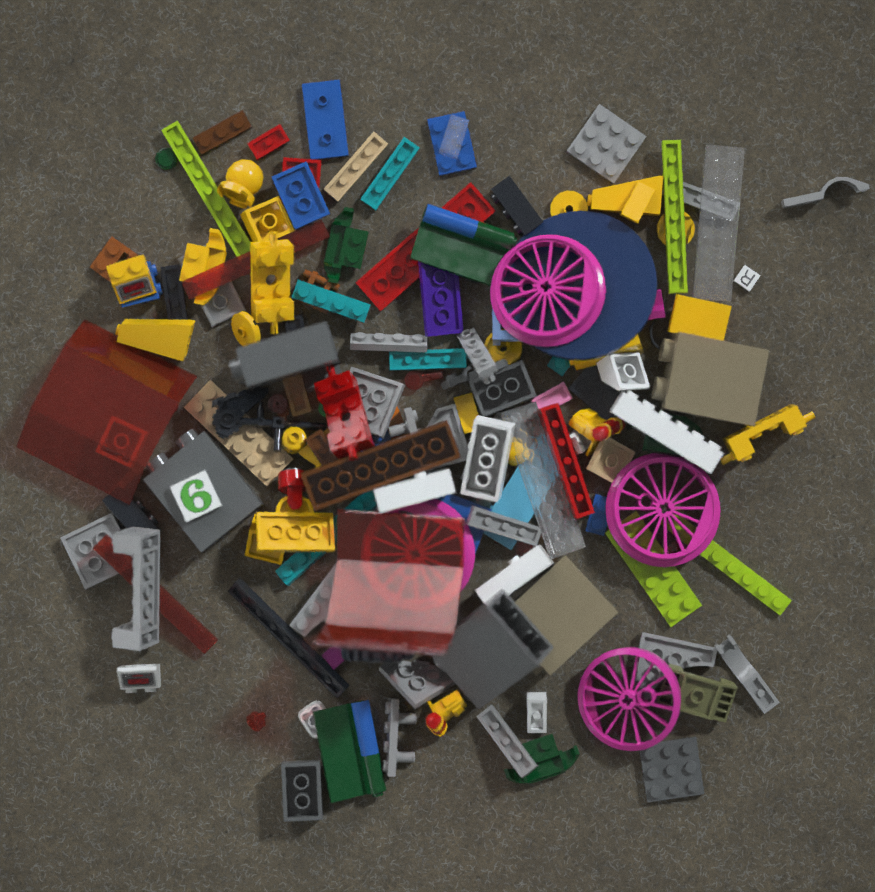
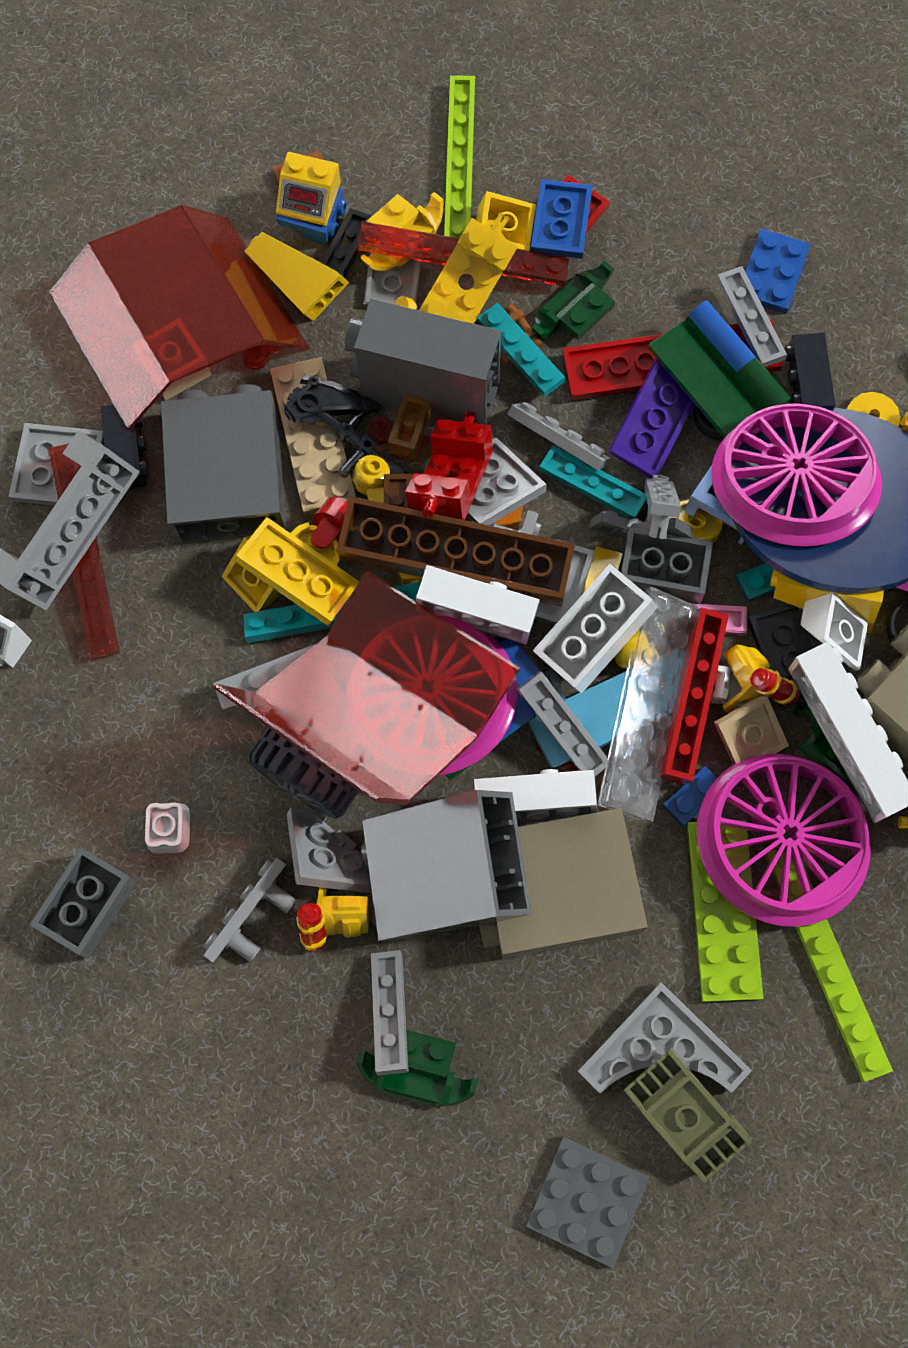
camera: 35 degrees right, 15 degrees down
(166, 158) = (435, 111): dark green piece -> none
(196, 496) = (207, 454): tile -> none
(222, 132) = (515, 118): reddish brown plate -> none
(242, 182) = (502, 168): yellow tile -> none
(256, 720) = (93, 779): clear red tile -> none
(268, 142) = (561, 153): red plate -> none
(288, 638) = (204, 705): black plate -> none
(325, 119) = (641, 168): blue plate -> none
(333, 656) = (240, 765): magenta tile -> none
(349, 751) = (178, 892): dark green door -> none
(356, 166) = (644, 231): tan plate -> none
(390, 173) = (679, 260): teal plate -> none
(415, 379) = (563, 498): clear red plate -> none
(454, 137) = (783, 253): clear brick -> none
(458, 192) = (751, 316): none -> light grey plate
(536, 712) = (453, 999): white plate -> none
(588, 704) = (528, 1034): dark pink piece -> none
(747, 674) = (771, 1135): light grey piece -> none

